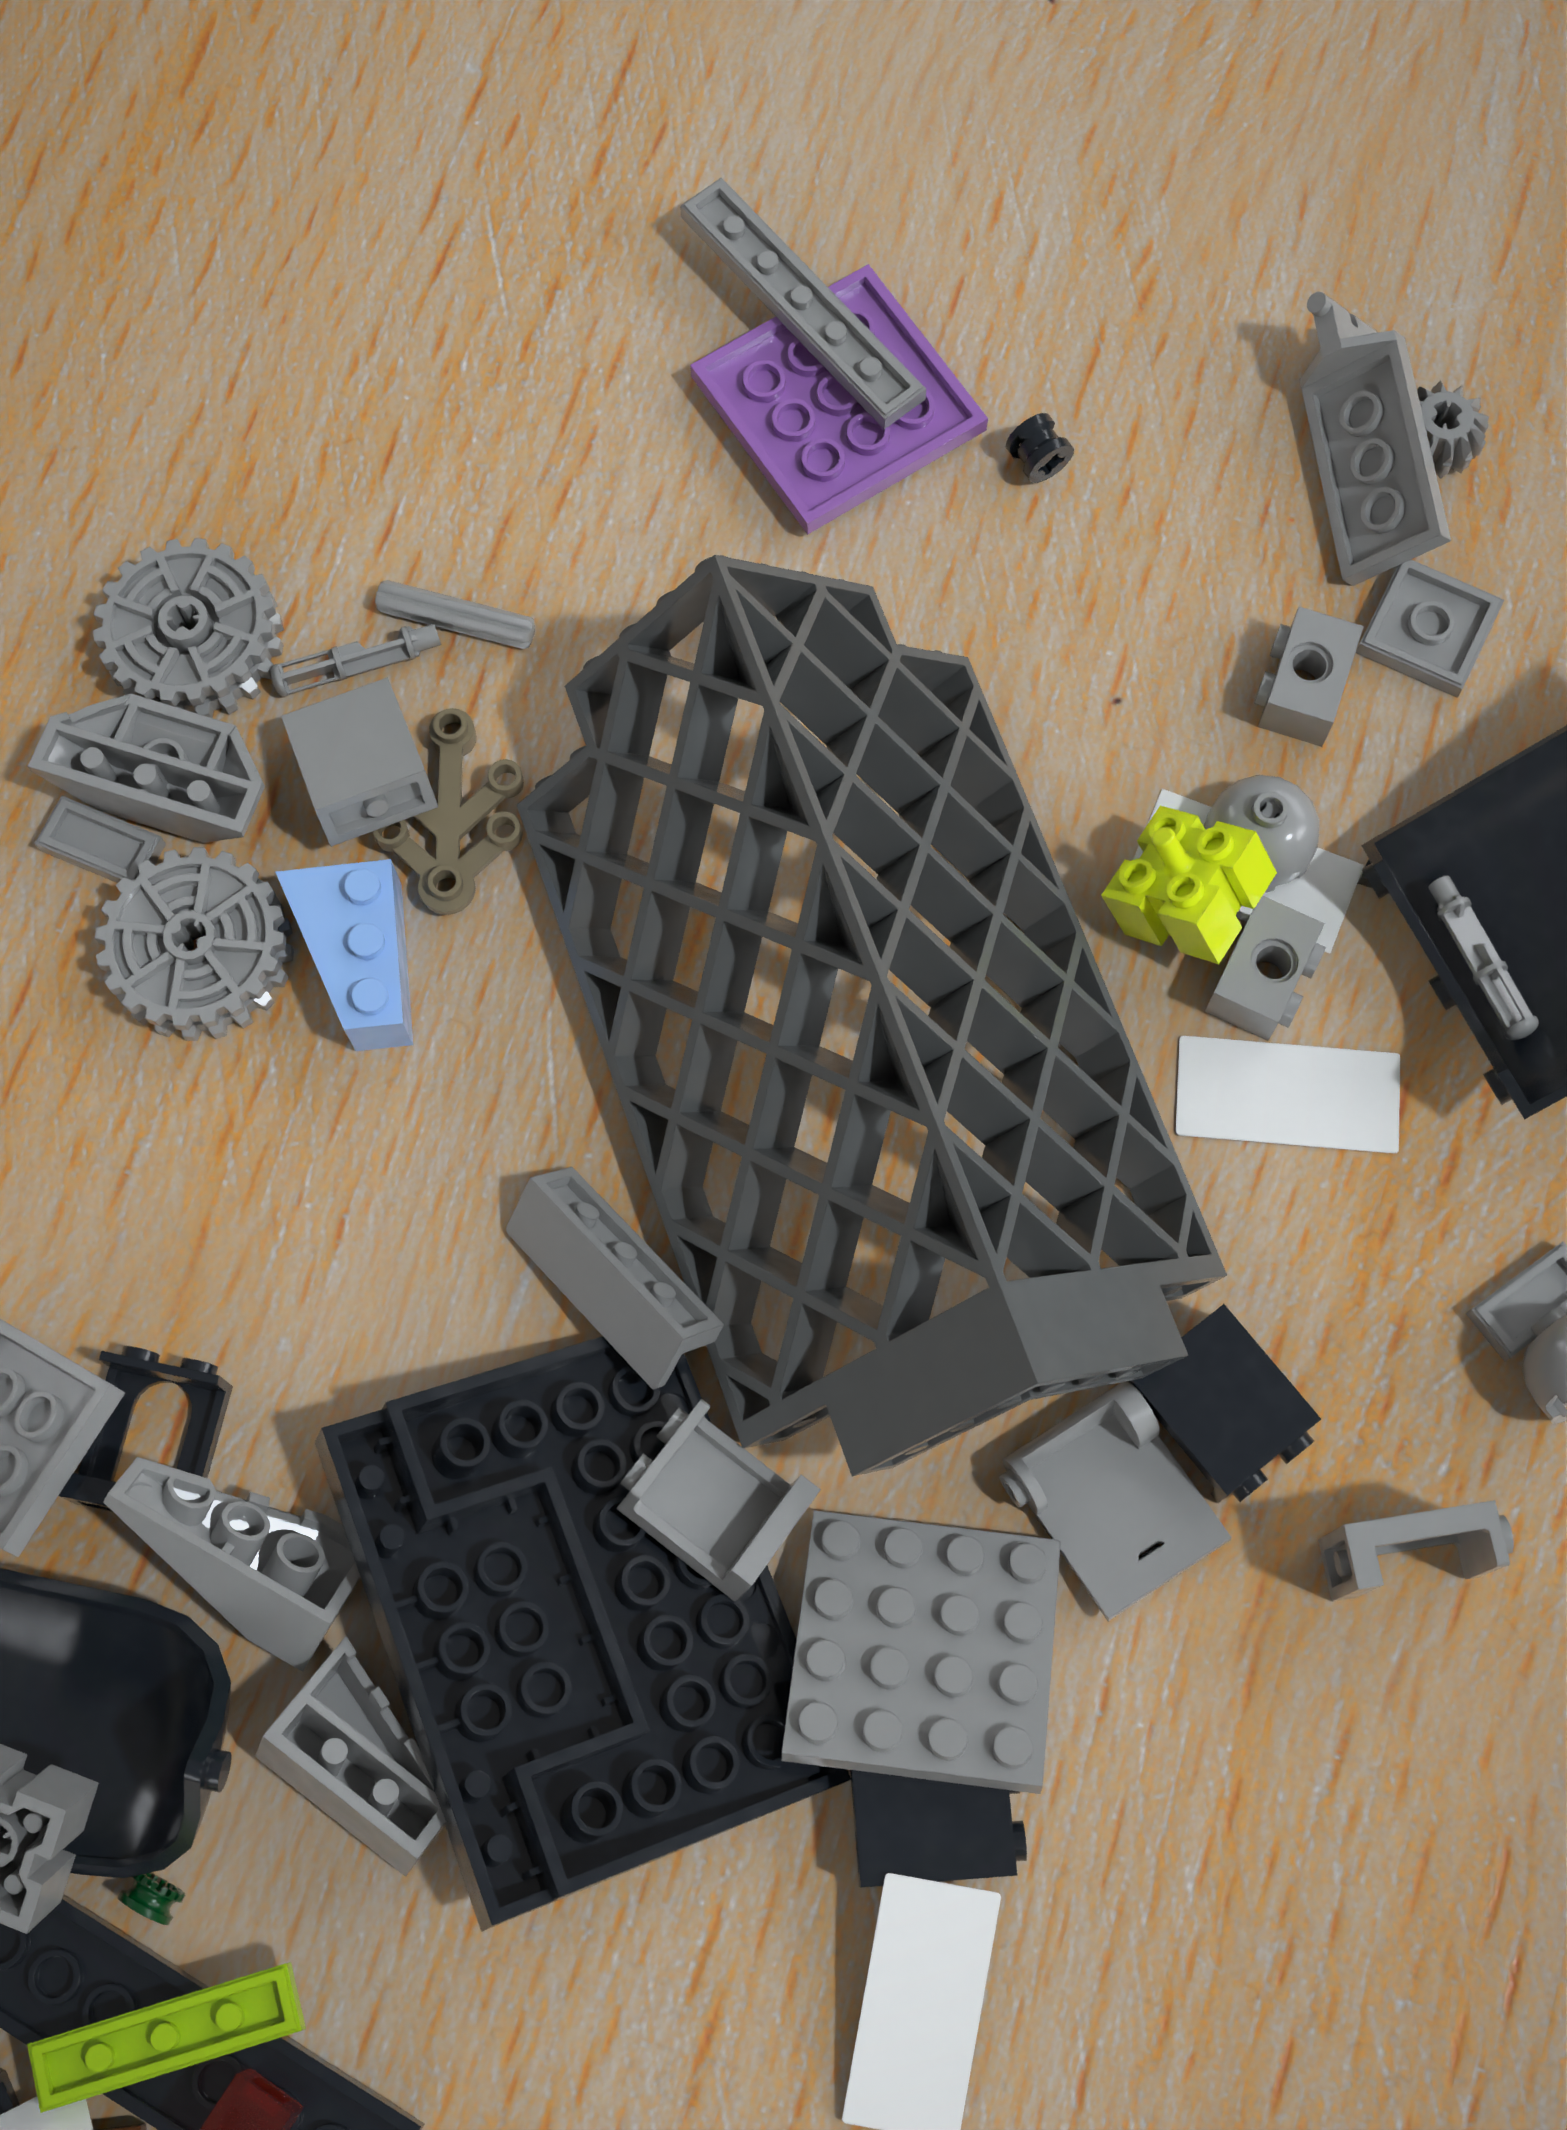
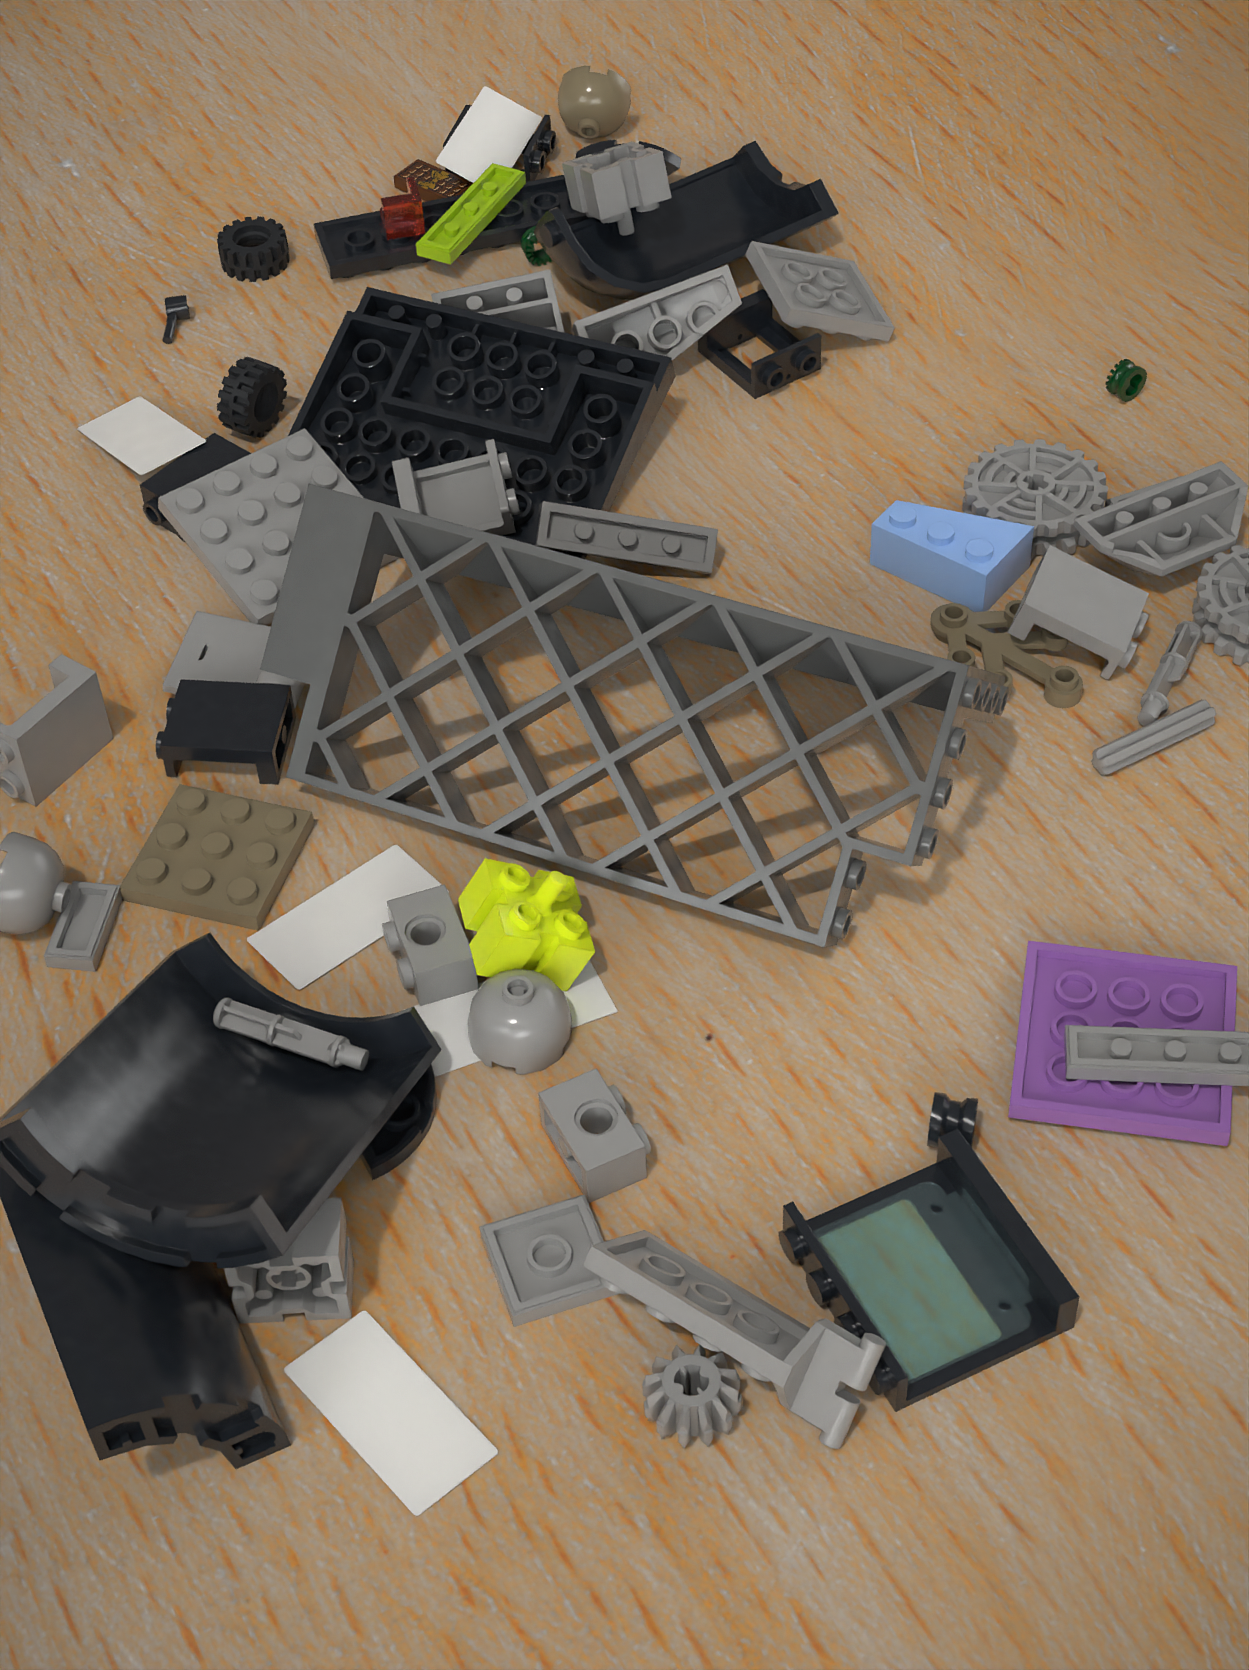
camera: 135 degrees right, 25 degrees down
(757, 1920) = (252, 397): none -> black tyre
(1182, 381) = (934, 1272): none -> panel
(1349, 1268) = (217, 857): none -> dark tan plate

